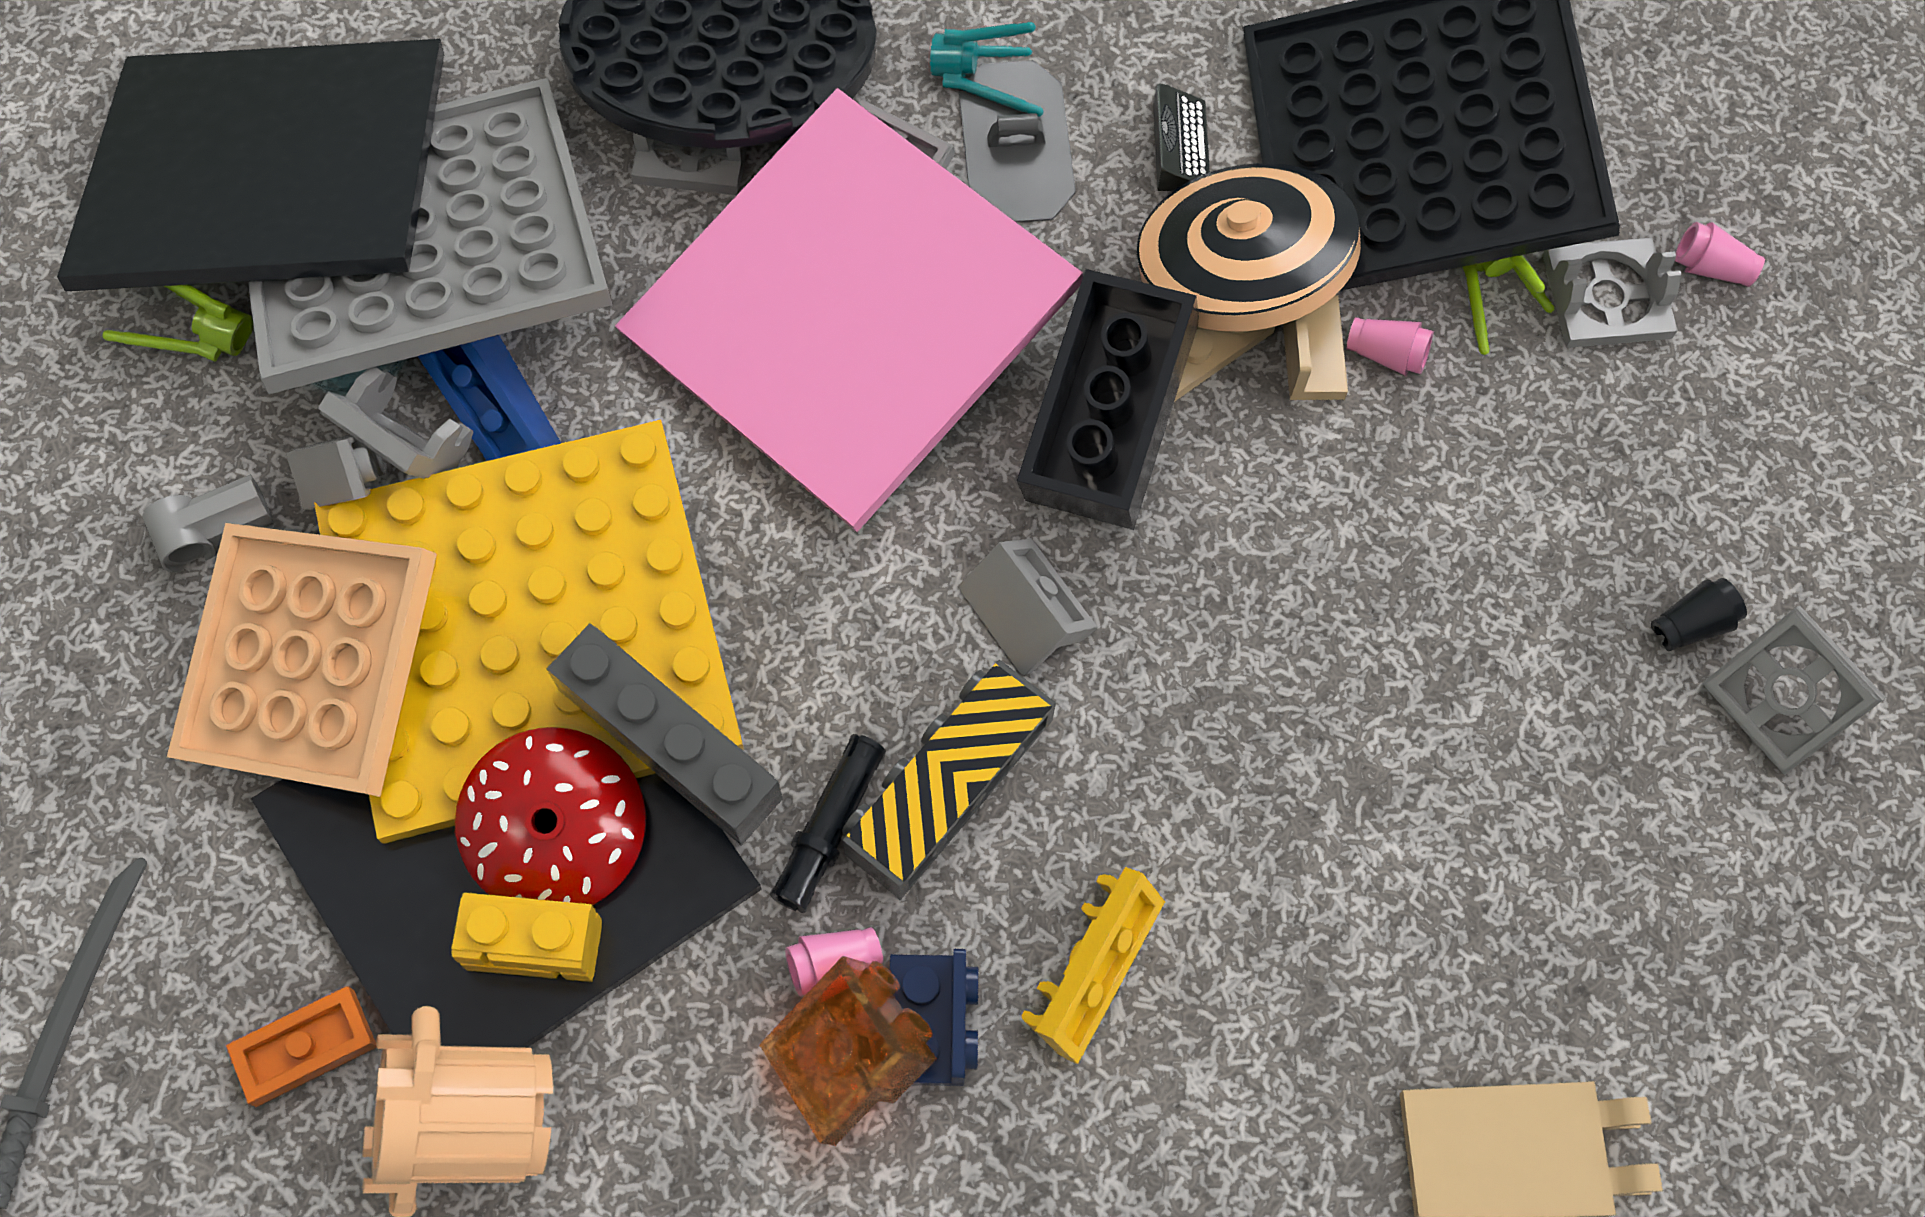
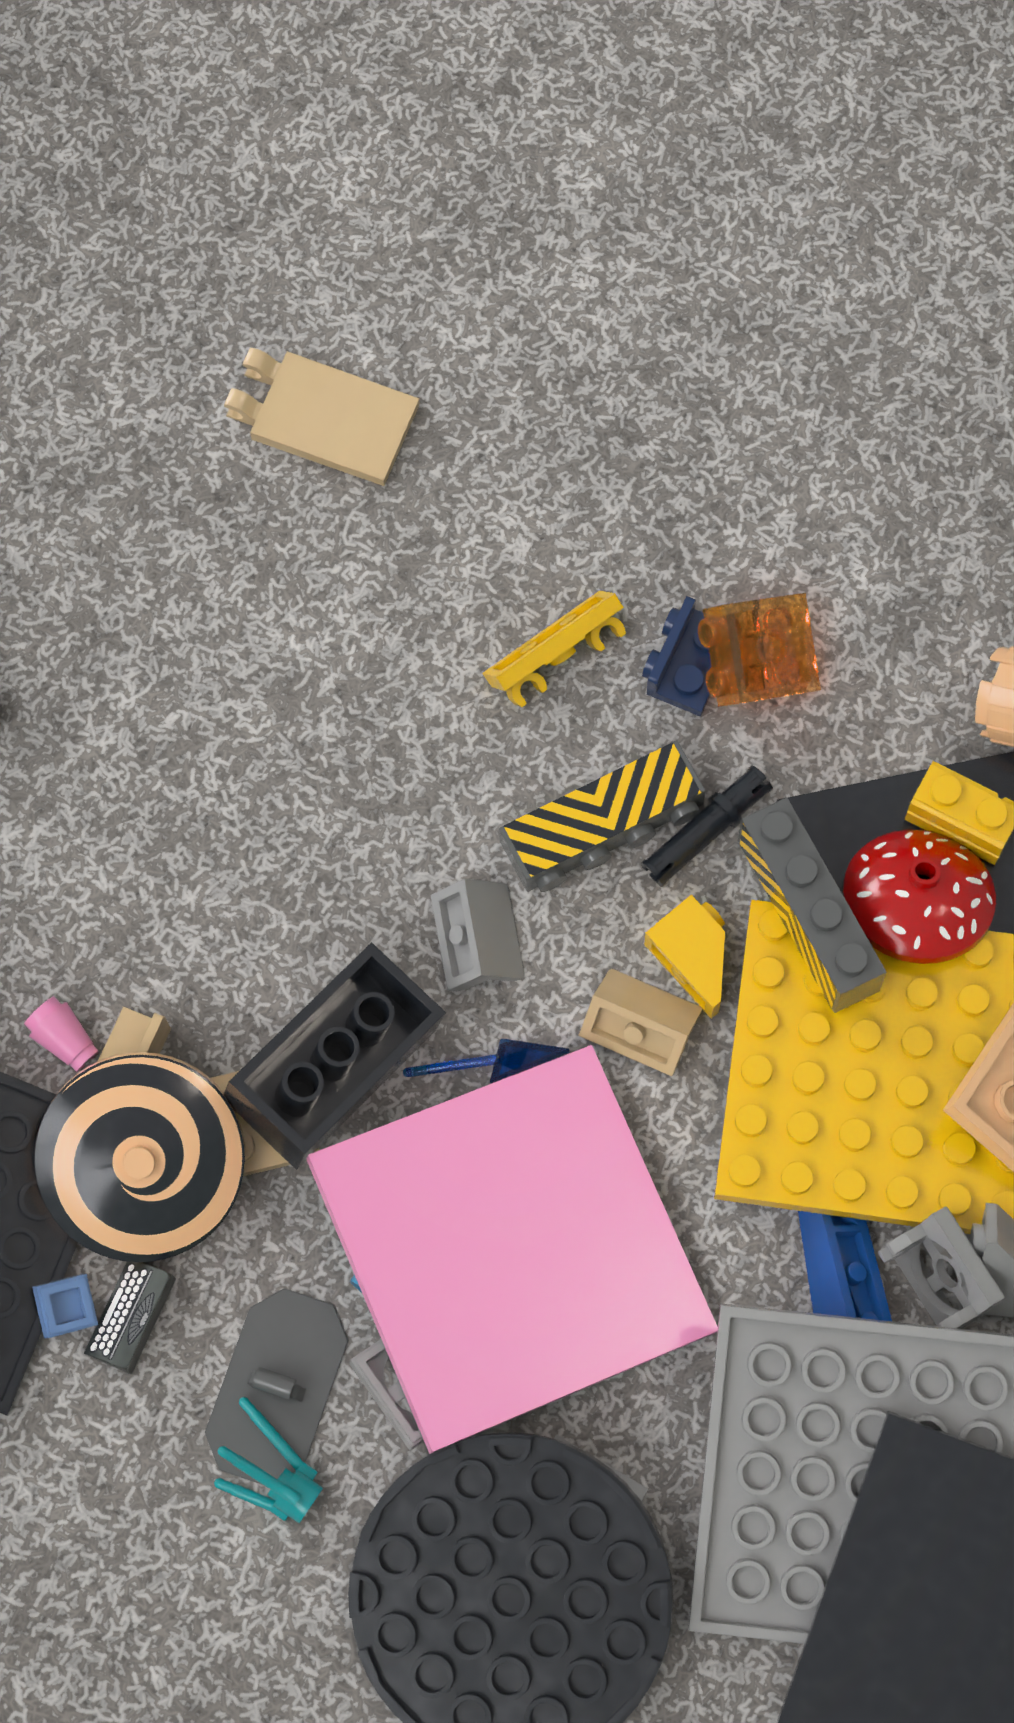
camera: 150 degrees left, 5 degrees up
(788, 671) = (692, 950): none -> yellow slope
(813, 589) = (640, 1021): none -> tan panel
(818, 953) = (745, 725): bright pink cone -> none
(925, 484) = (510, 1059): none -> clear blue piece
(1244, 120) = (65, 1306): none -> medium blue tile

